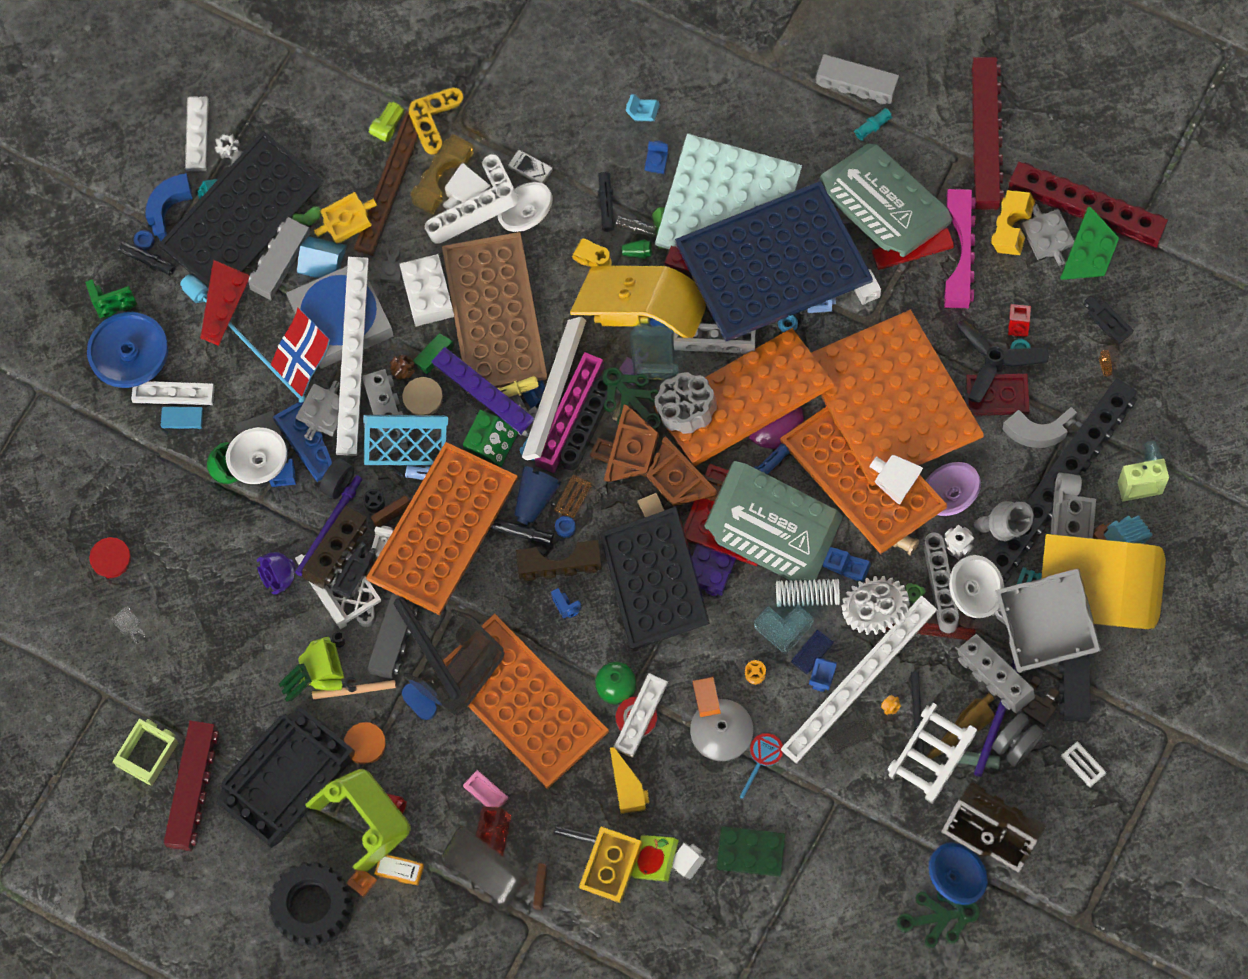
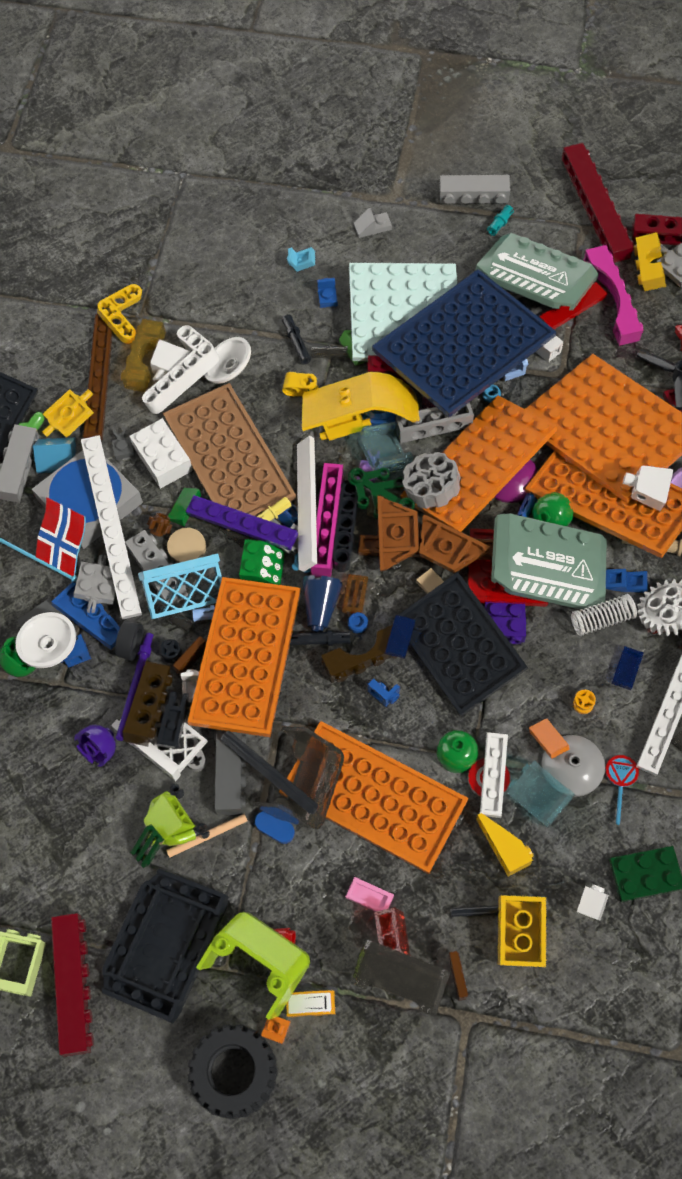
camera: 20 degrees left, 5 degrees down
(366, 741) = (235, 882): orange tile -> none
(385, 126) = (80, 330): lime piece -> none
(530, 167) = (219, 330): white tile -> none
(597, 554) = (400, 637): none -> clear blue tile
(638, 249) = (338, 369): green cone -> none
(655, 858) = (563, 909): tile -> none
(678, 746) = (540, 793): none -> clear light blue panel
(734, 88) = (372, 224): none -> light grey slope
(783, 632) = (594, 657): clear light blue brick -> none
(796, 471) = (553, 509): none -> green cylinder
(822, 674) = (647, 684): blue bracket -> none

